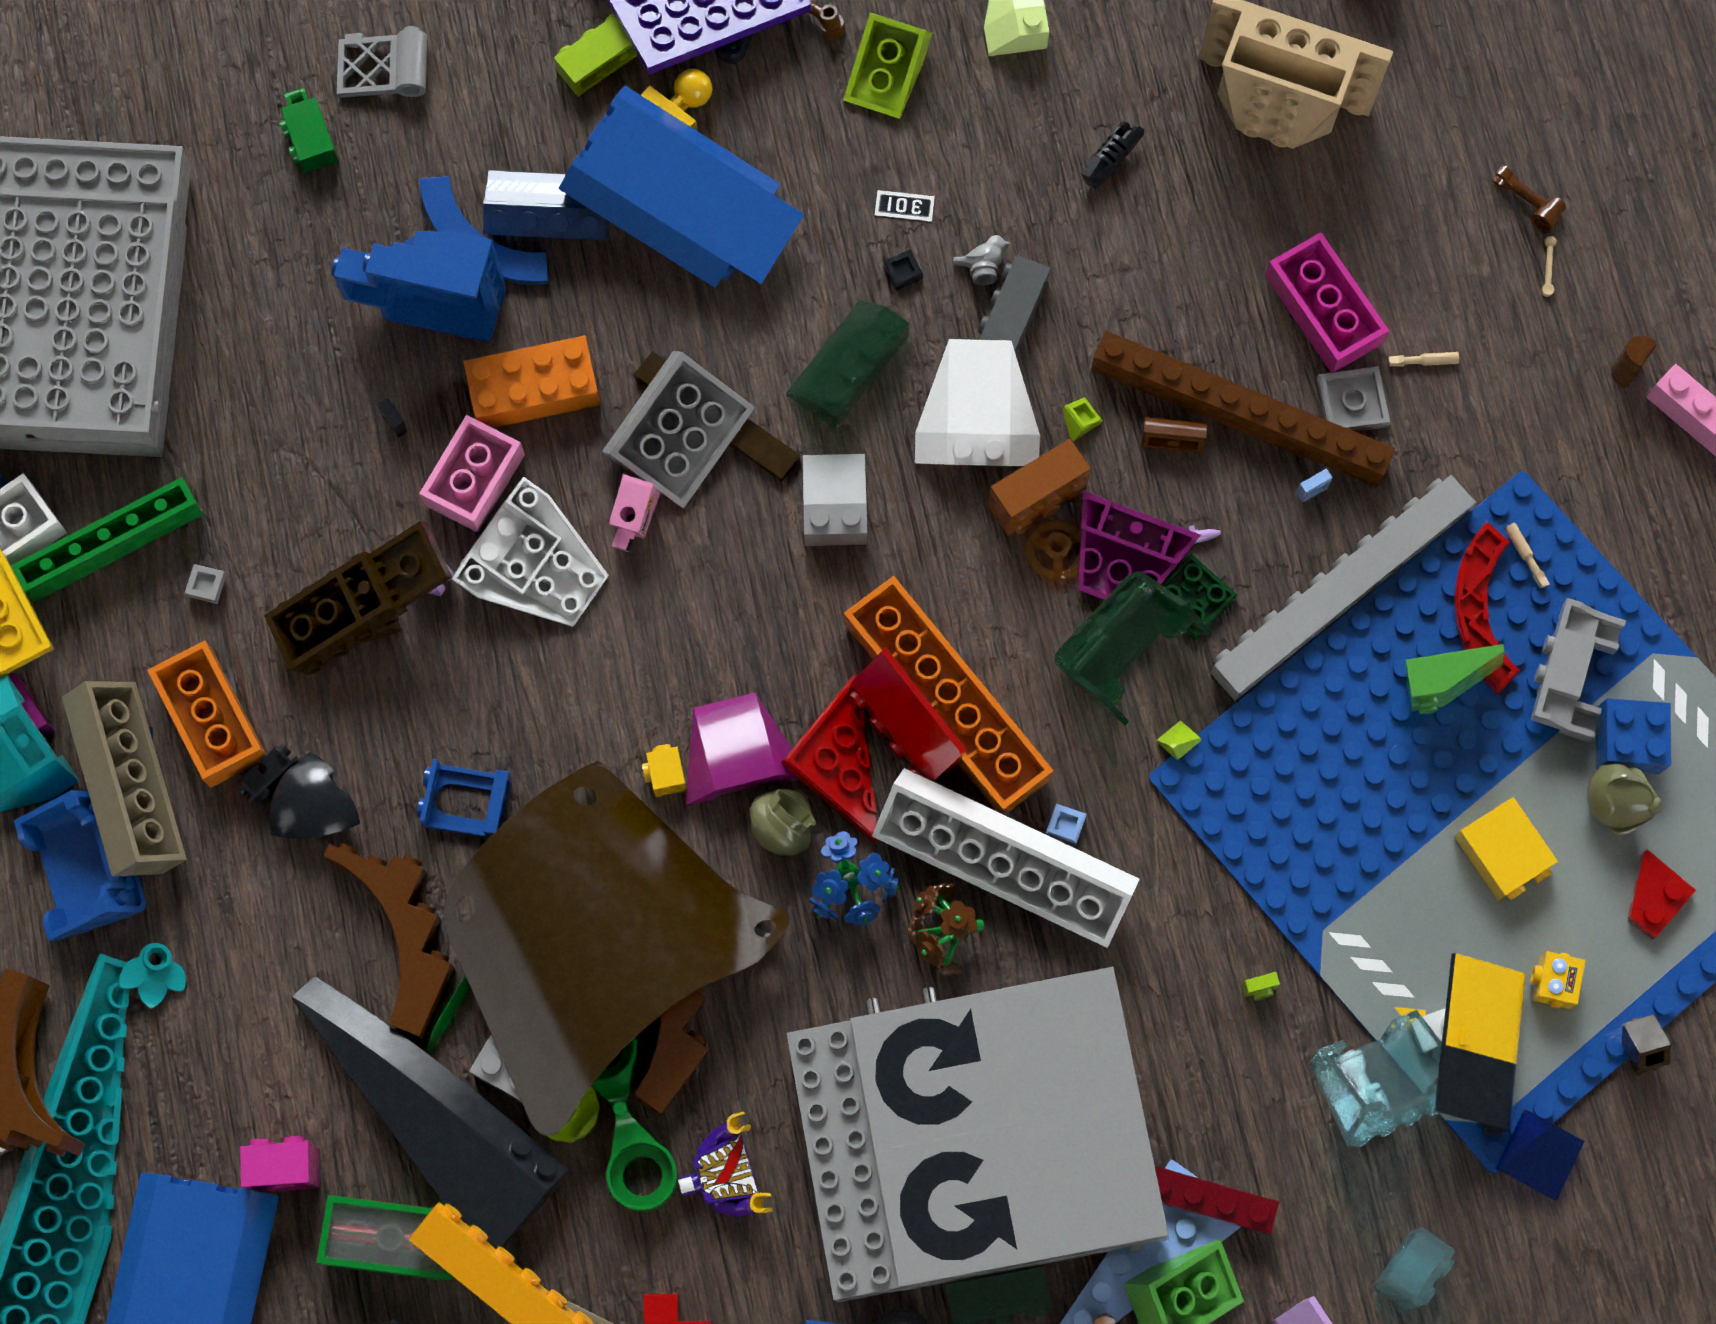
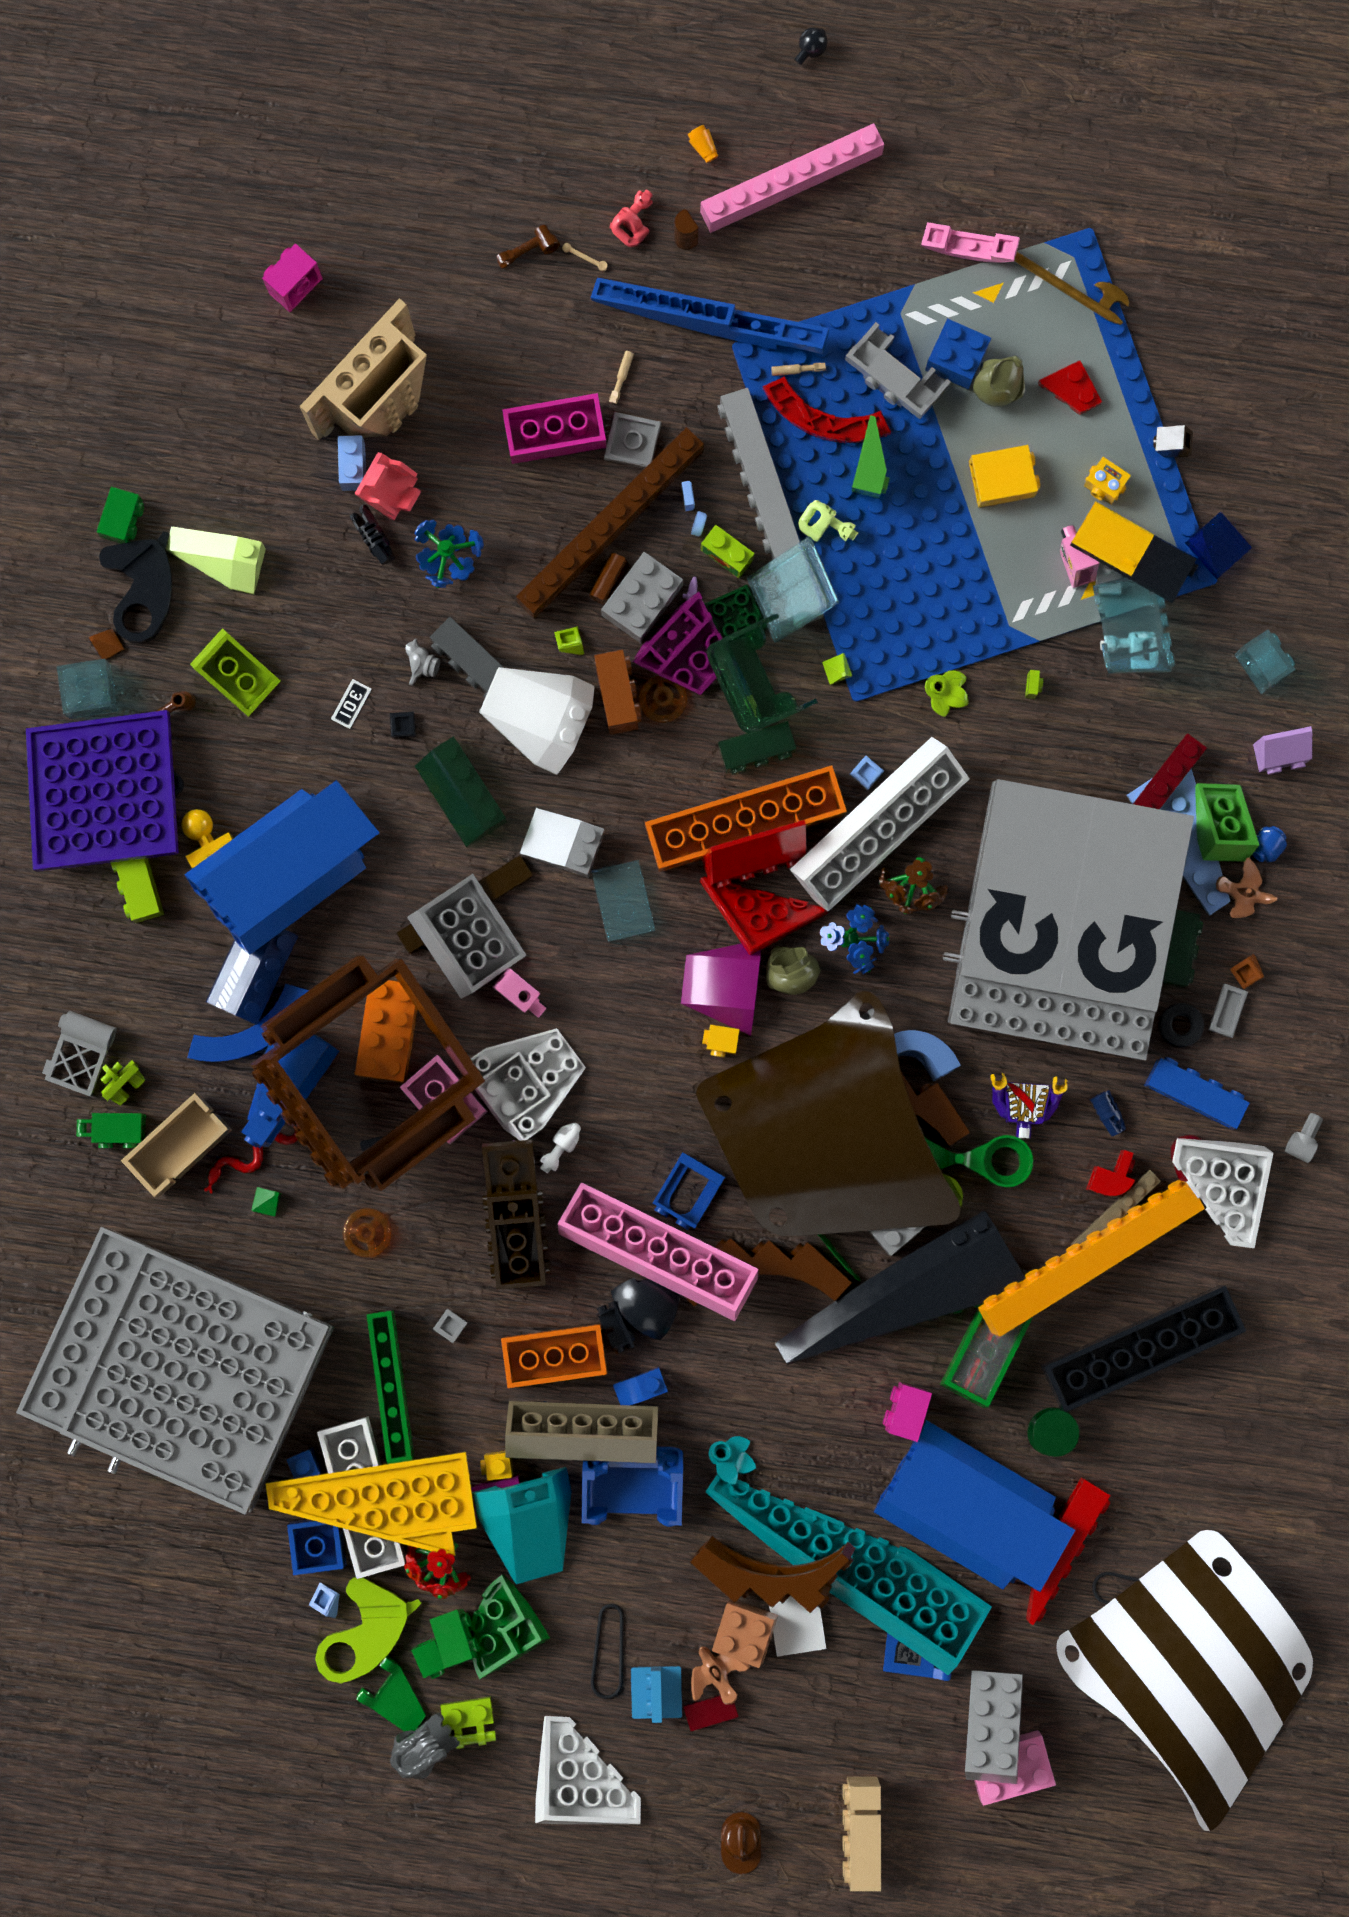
camera: 70 degrees left, 10 degrees up
(48, 698) = (496, 1466): none -> yellow brick
(206, 834) = (640, 1387): none -> blue slope
(282, 327) = (266, 1201): none -> green slope
(282, 439) = (372, 1249): none -> clear orange piece
(298, 259) = (215, 1171): none -> red animal
(310, 200) = (176, 1145): none -> tan piece
(351, 116) = (113, 1089): none -> lime hips
(372, 785) = (658, 1251): none -> bright pink brick
(394, 435) = (411, 1139): none -> reddish brown door
(473, 632) = (566, 1139): none -> white piece
(747, 1021) = (928, 1050): none -> medium blue arch
(753, 1286) = (1108, 1112): none -> dark blue hinge
(792, 594) = (623, 901): none -> clear light blue tile
(1040, 680) = (757, 748): none -> clear green brick
(1125, 230) = (452, 541): none -> blue plant
(1167, 478) = (642, 597): none -> light grey brick
(1175, 145) = (389, 486): none -> coral panel
(1186, 98) = (351, 461): none -> light blue brick
(1206, 888) = (950, 693): none -> lime plate
(1251, 644) = (794, 588): none -> clear light blue piece
(1266, 555) = (727, 551): none -> lime brick
(1286, 511) = (699, 524): none -> light blue tile
(1356, 654) = (827, 518): none -> yellowish green piece
(1432, 986) = (1079, 566): none -> bright pink torso
(1543, 430) = (709, 316): none -> blue slope
(1617, 296) = (631, 221): none -> coral piece

